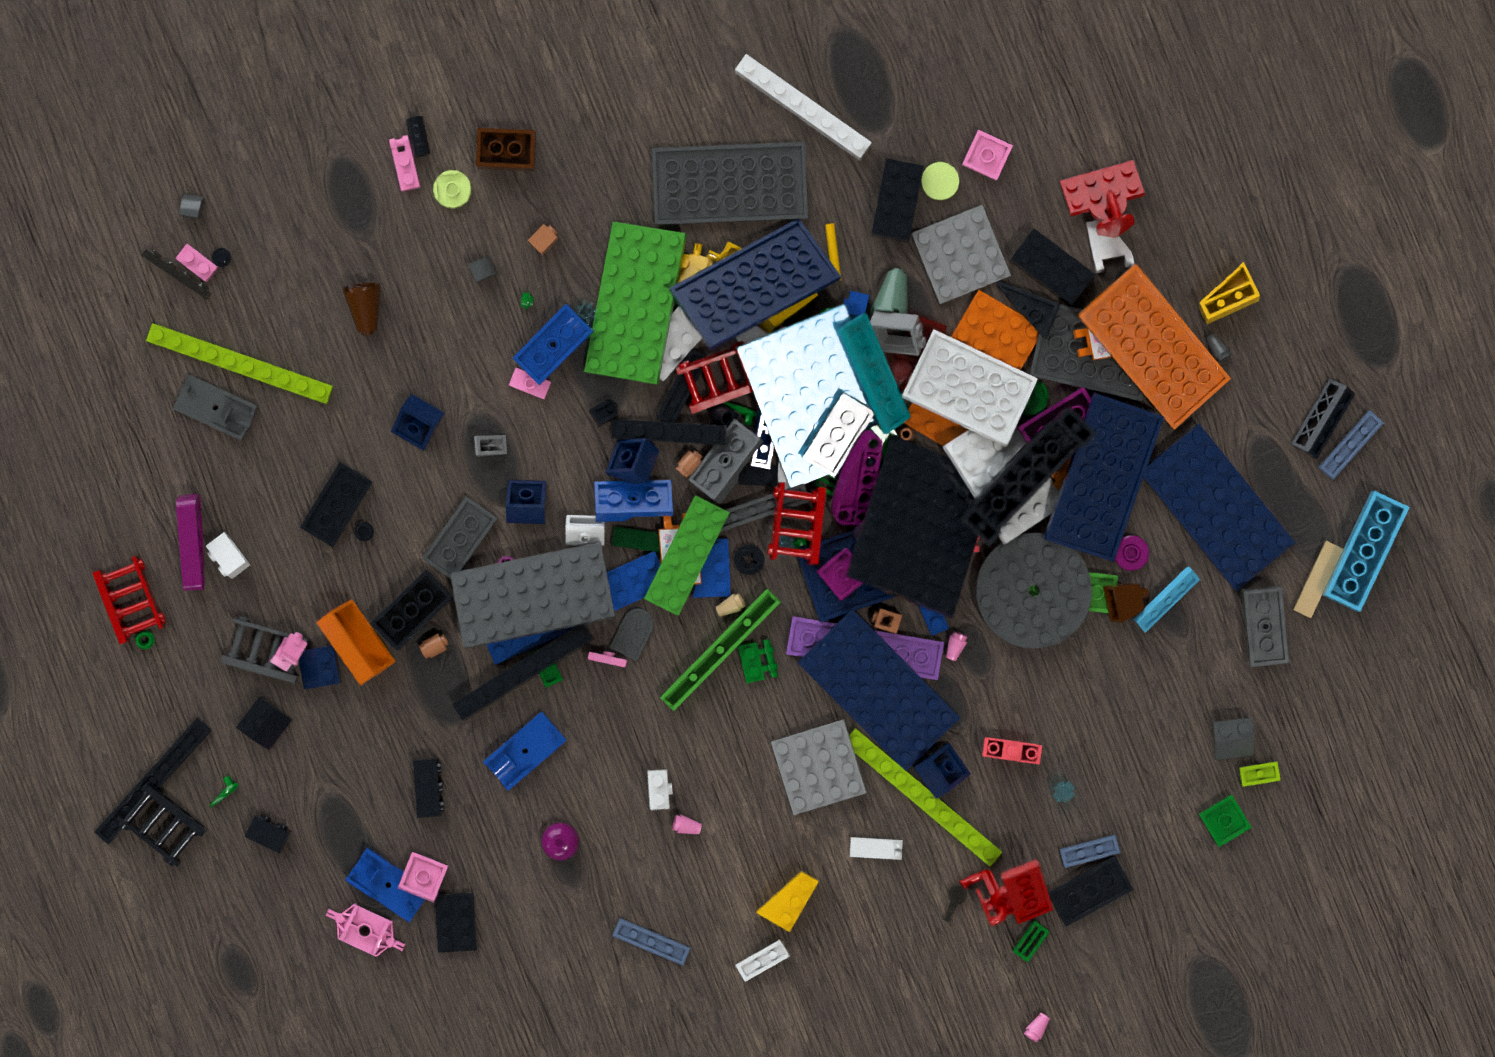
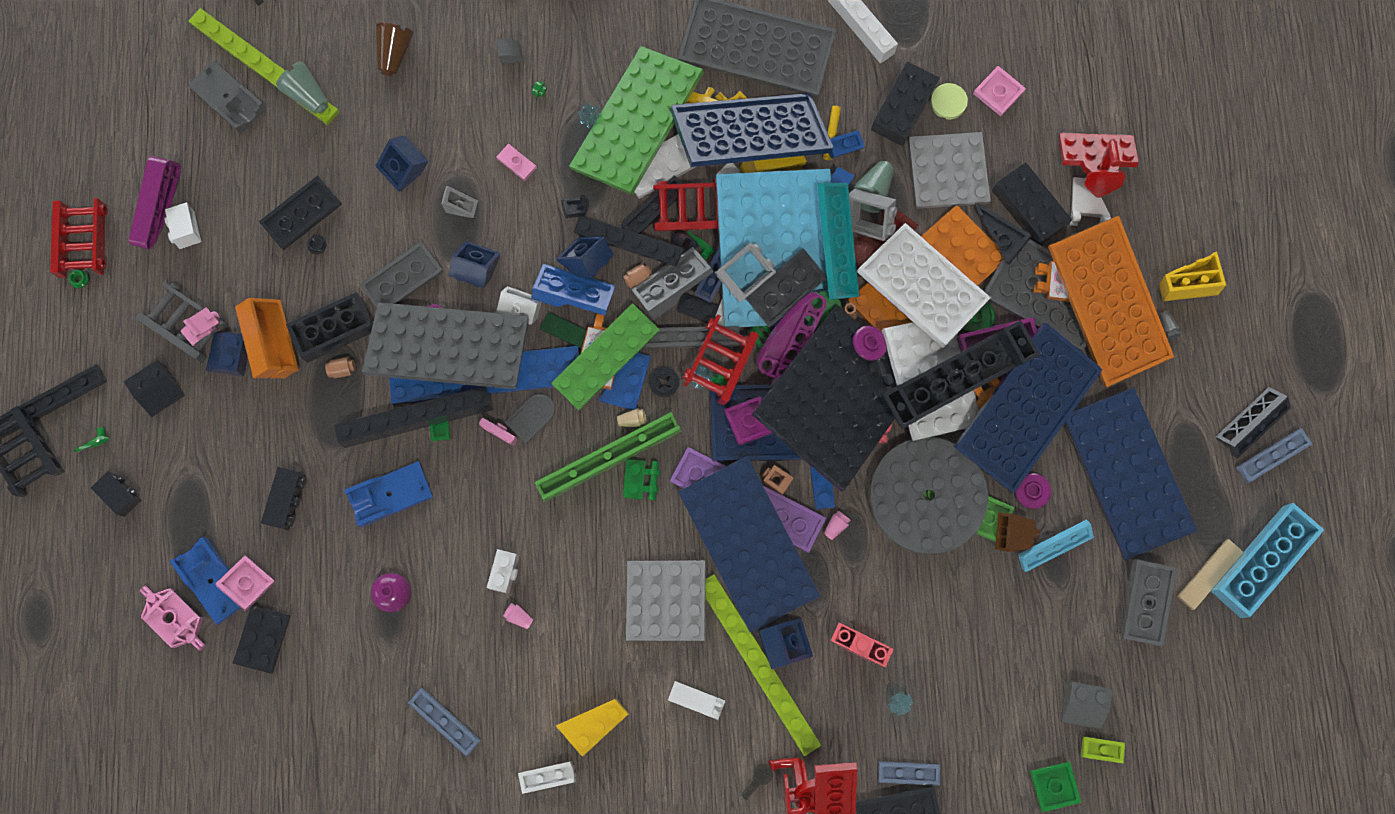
camera: 15 degrees right, 10 degrees down
(296, 381) = (302, 88): none -> sand green cone
(543, 239) = (573, 41): nougat brick -> none
(564, 329) = (565, 125): blue piece -> none
(809, 441) = (767, 264): none -> light grey window
(851, 262) = (846, 144): none -> blue plate
(934, 464) = (869, 343): none -> magenta wheel

